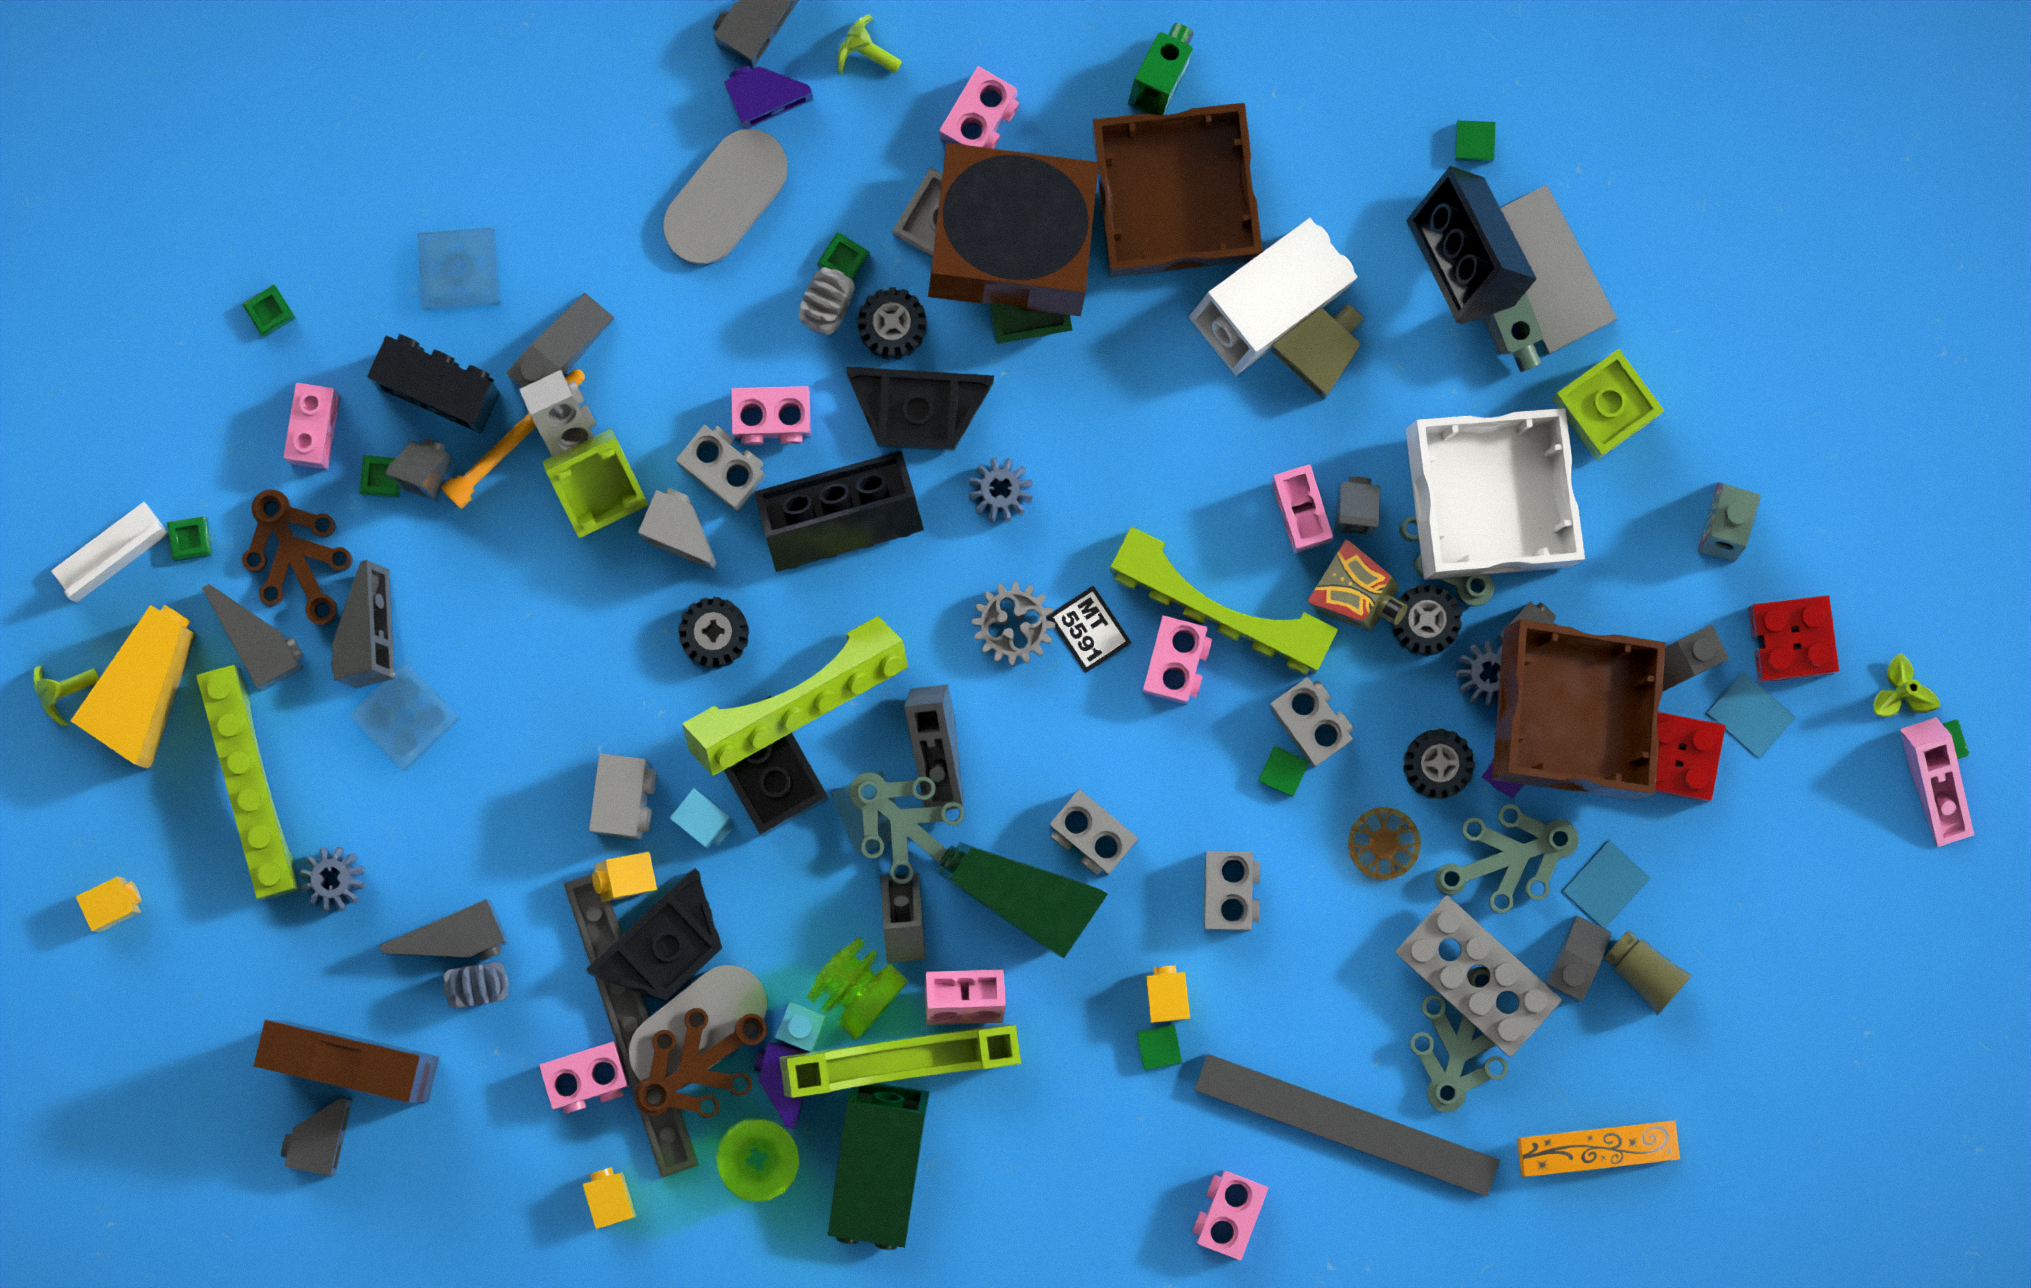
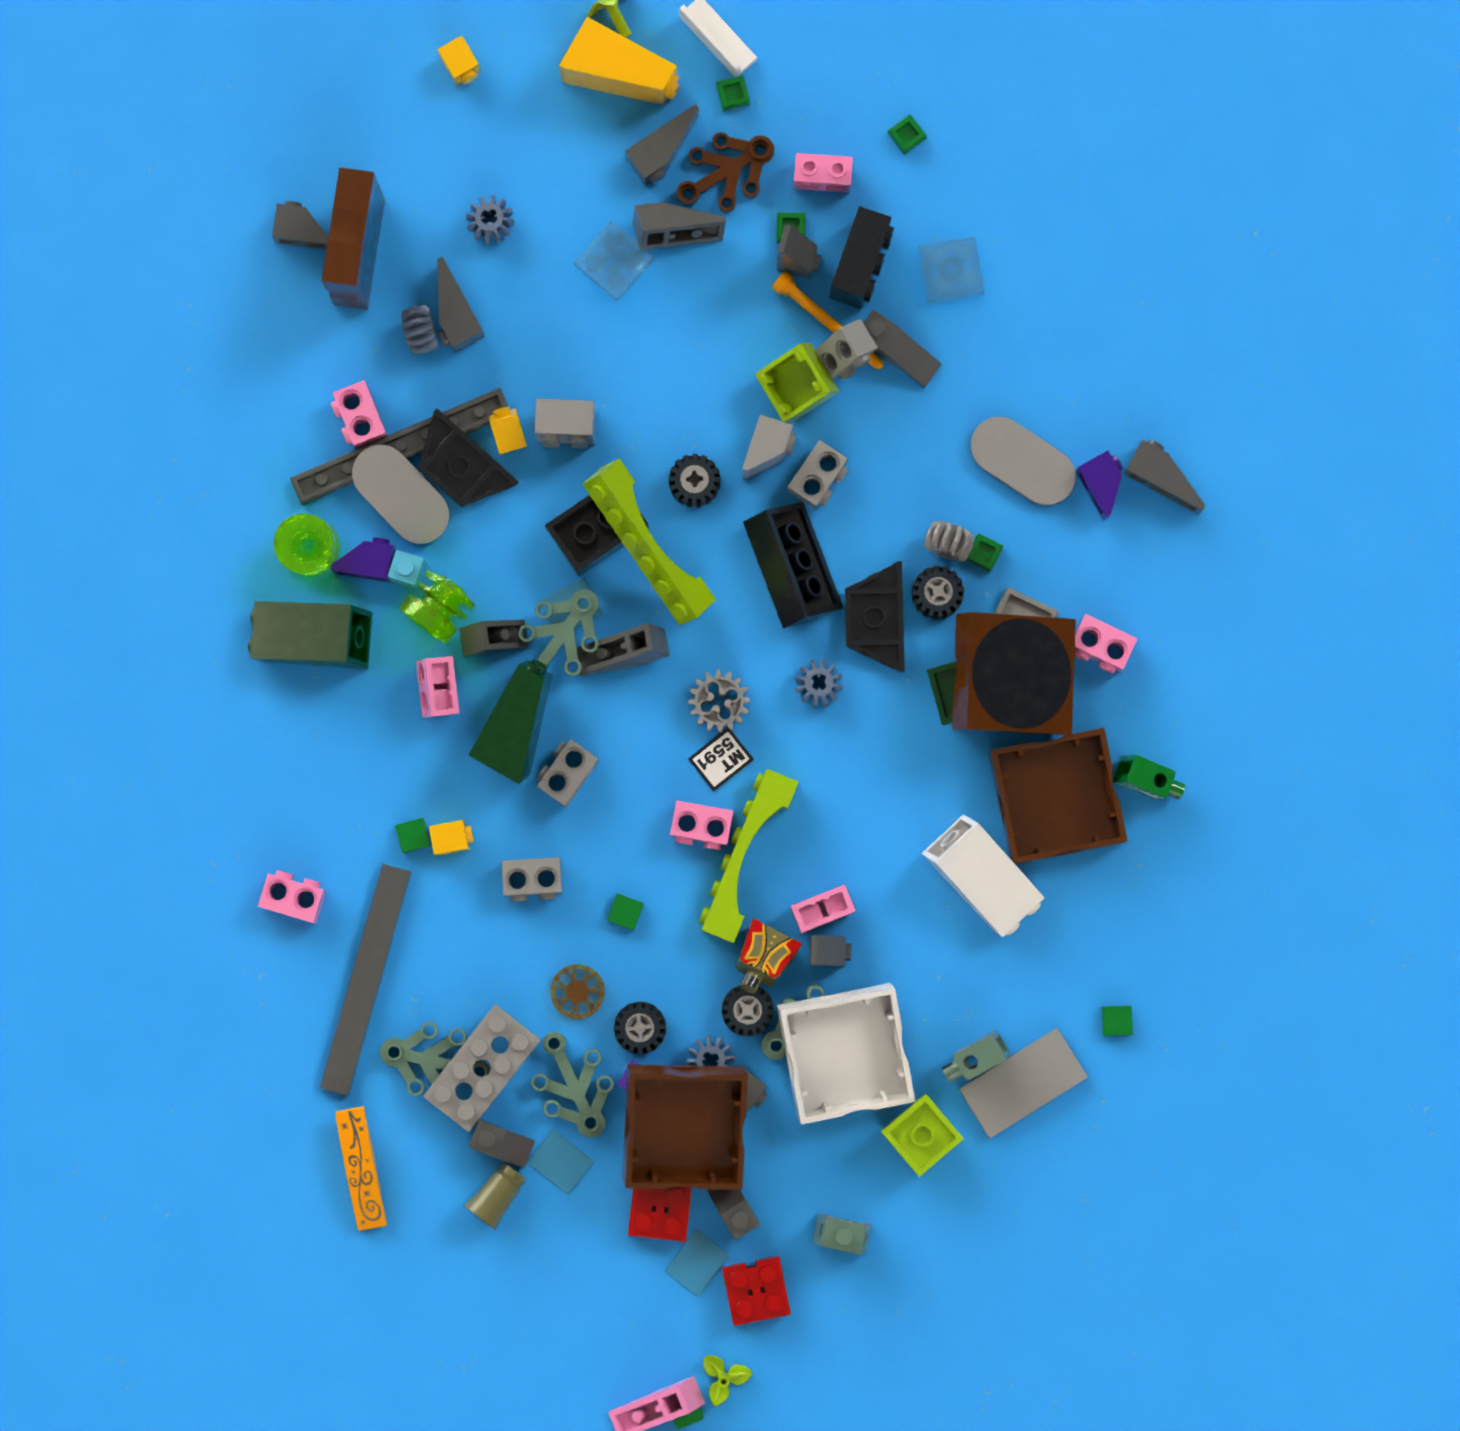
camera: 85 degrees right, 0 degrees up
(246, 782) = (596, 135): lime arch -> none
(608, 1198) = (271, 440): yellow brick -> none
(693, 1068) = (369, 493): reddish brown plant -> none
(702, 819) = (554, 484): medium azure brick -> none
(771, 403) = (867, 508): bright pink brick -> none
(859, 40) = (1149, 548): lime plant -> none
(899, 1059) = (391, 658): lime arch -> none
(1302, 727) = (658, 923): light grey brick -> none
(1320, 348) = (947, 915): olive torso -> none
(1470, 247) = (1031, 1019): black slope -> none

